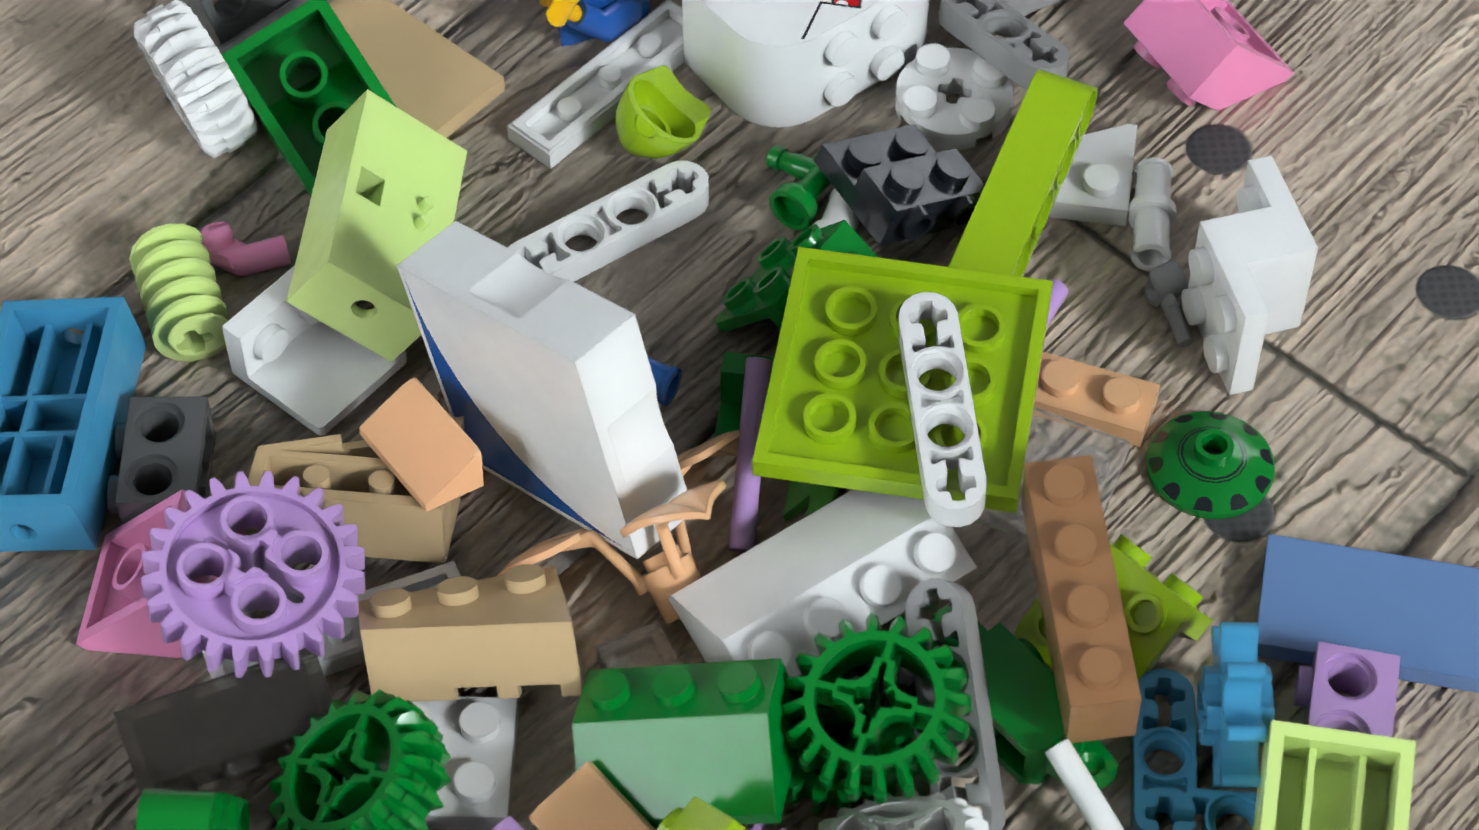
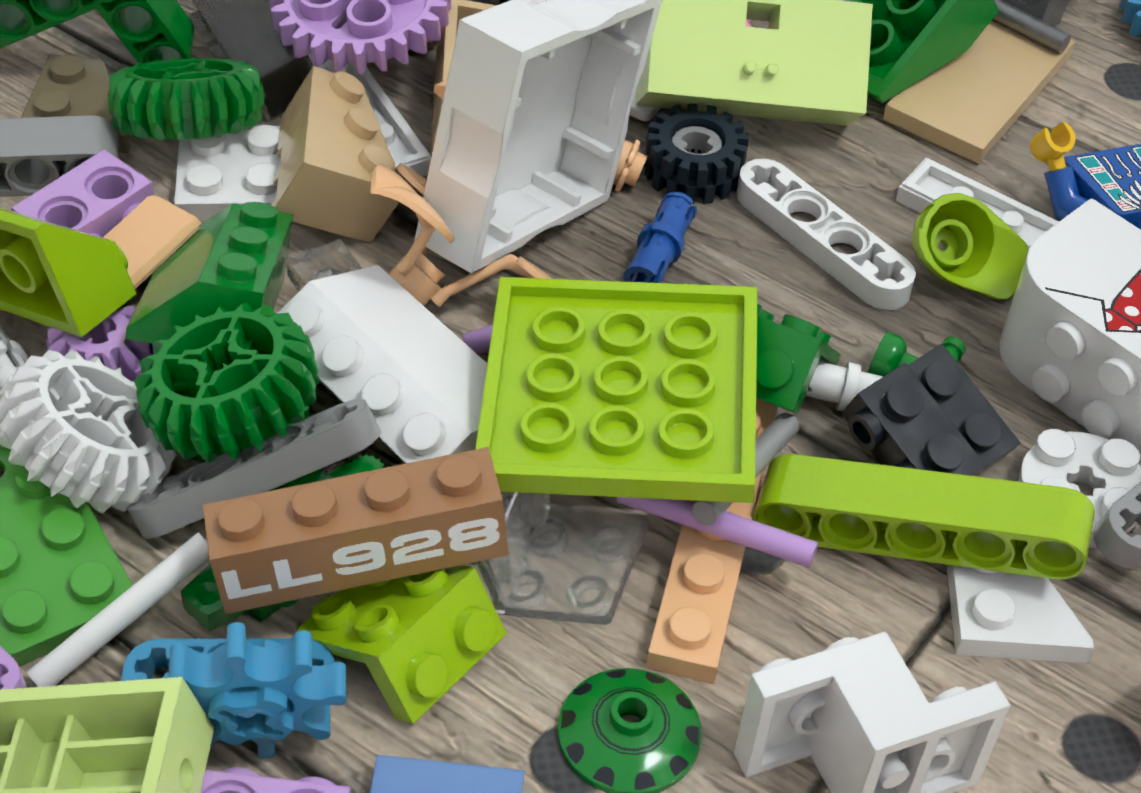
camera: 80 degrees right, 5 degrees down
(936, 408) = (568, 403): white beam -> none
(1152, 213) = (968, 662): white pin -> none

